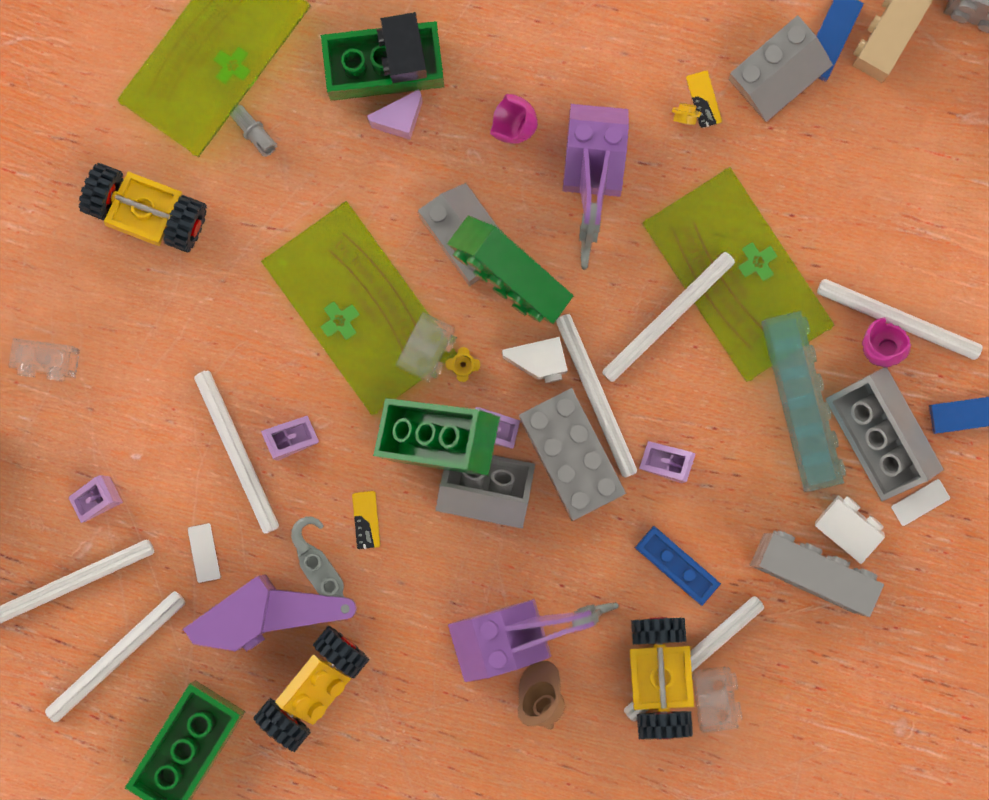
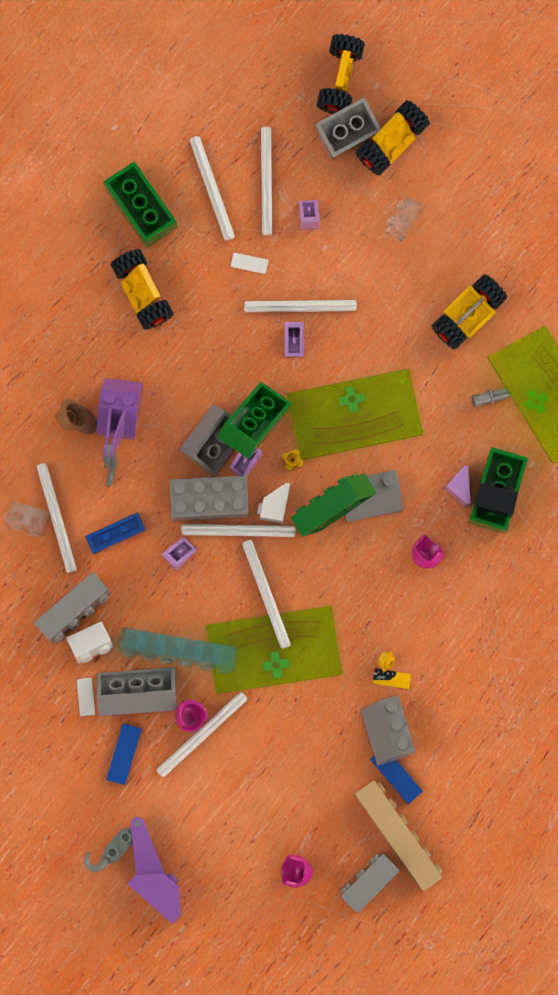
camera: 115 degrees right, 5 degrees down
(261, 608) = (200, 281): medium lavender slope -> none
(366, 520) = (226, 364): yellow sticker -> none
(426, 347) = (311, 440): clear brick -> none
(594, 163) = (379, 589): medium lavender slope -> none
(661, 678) = (54, 491): plate -> none

